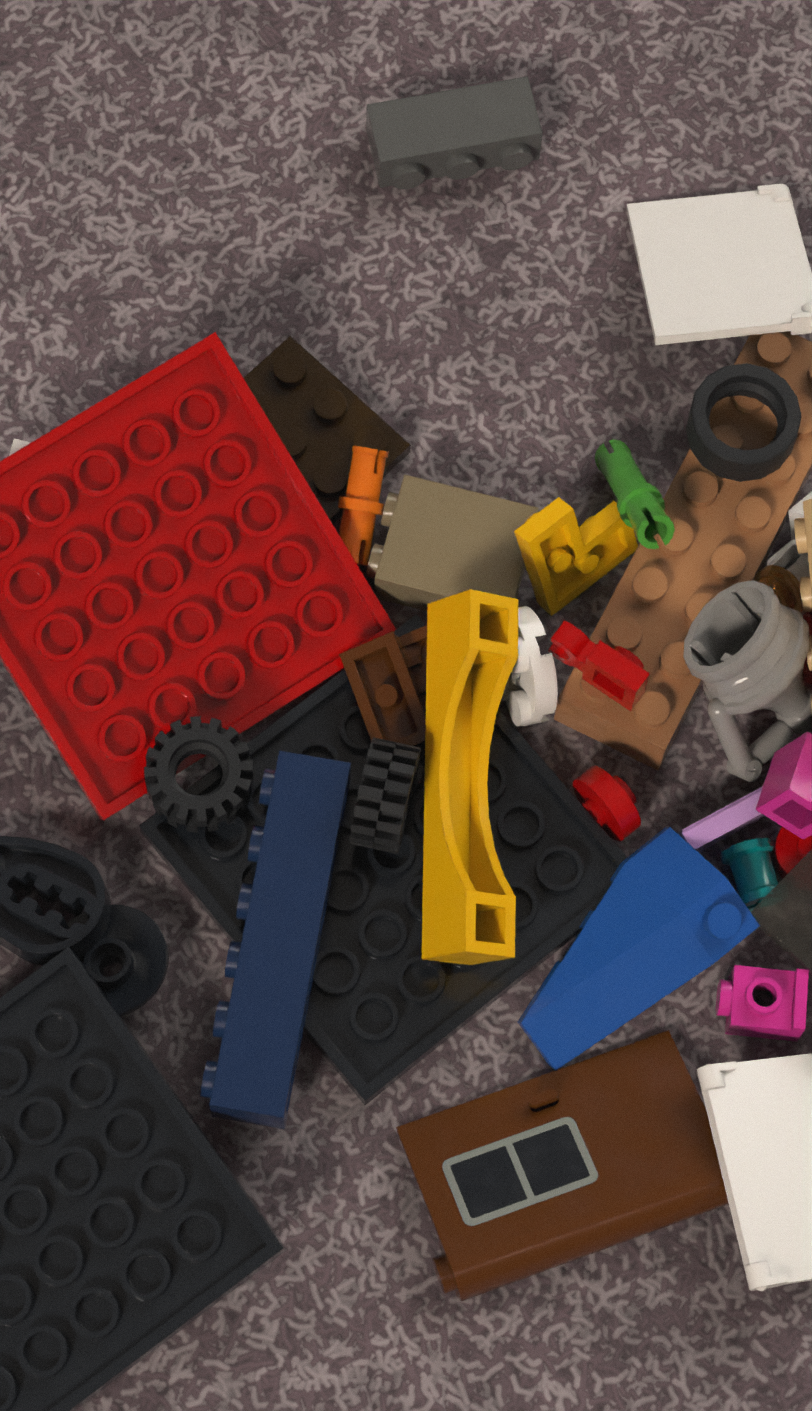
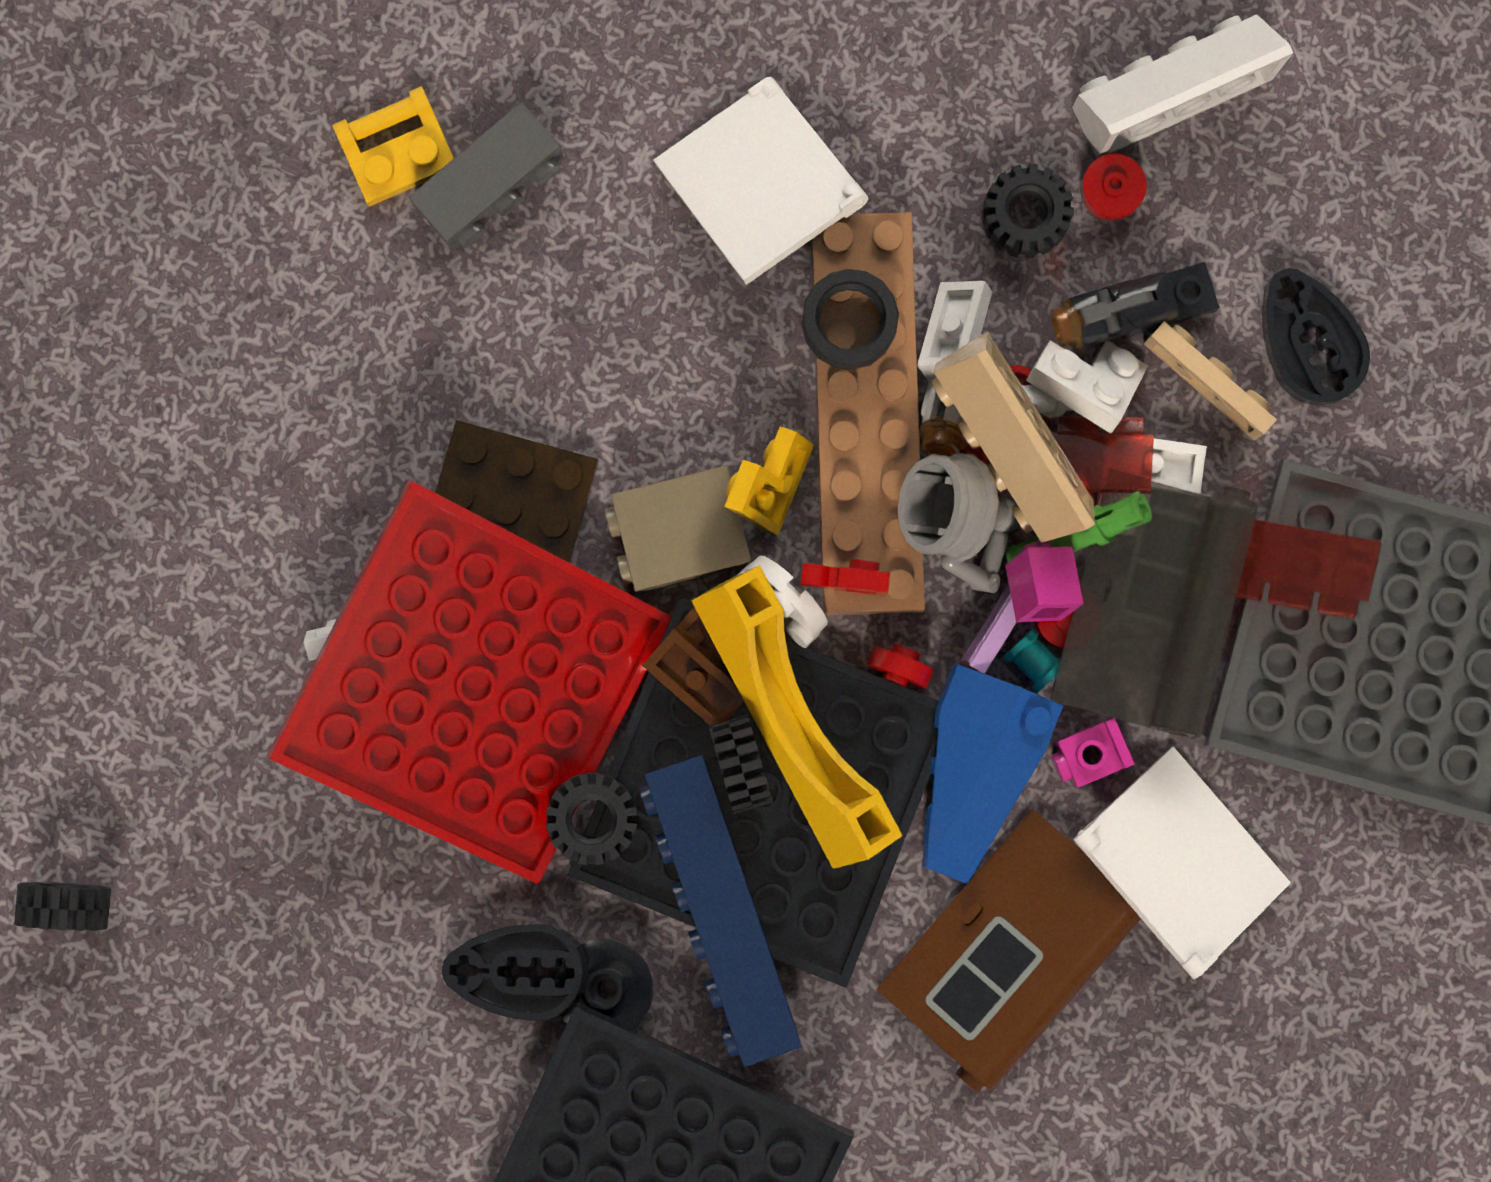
camera: 25 degrees left, 15 degrees up
(361, 79) = (401, 161): none -> yellow plate
(362, 501) = (589, 531): orange pin -> none
(638, 501) = (803, 425): bright green pin -> none

